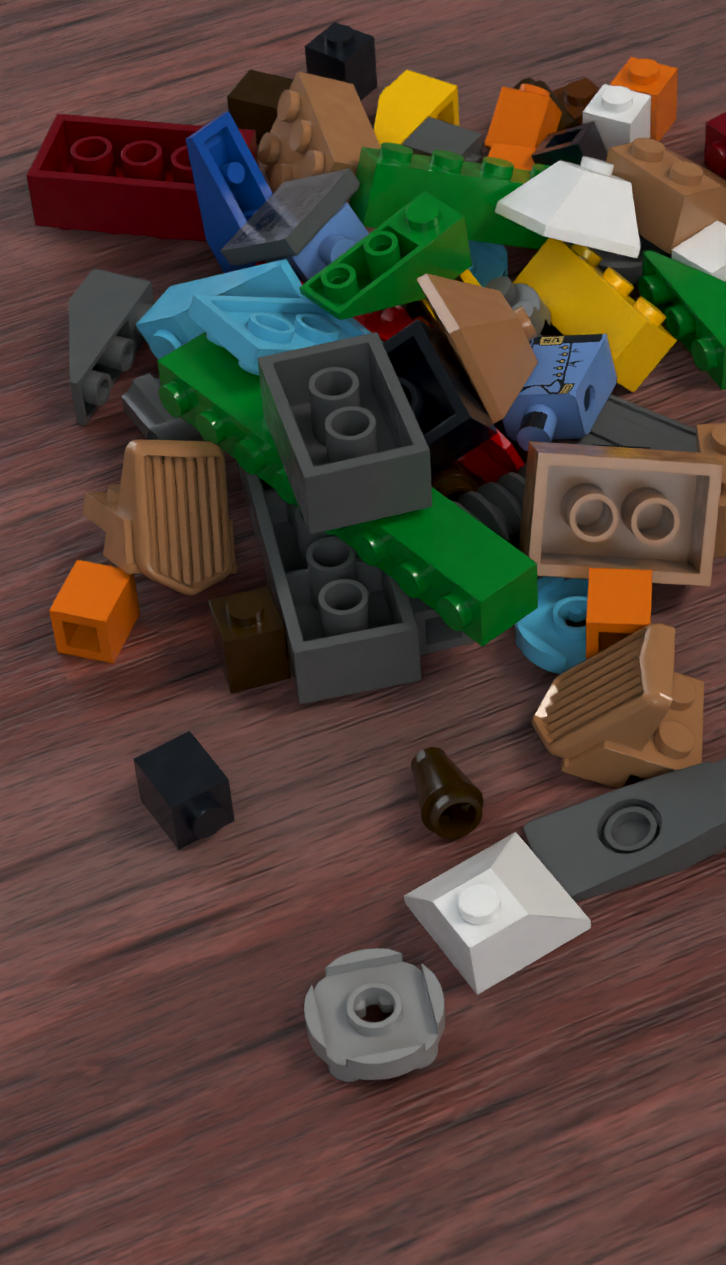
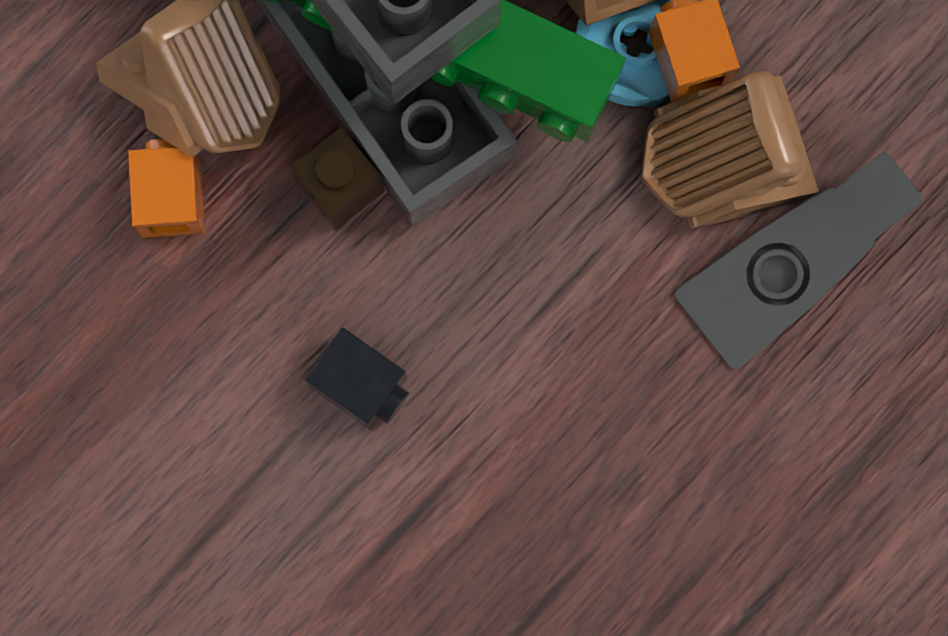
camera: 30 degrees left, 35 degrees up
(382, 1048) = (670, 565): light grey plate -> none
(445, 795) = (596, 293): dark brown cone -> none
(497, 912) = (691, 402): white slope -> none

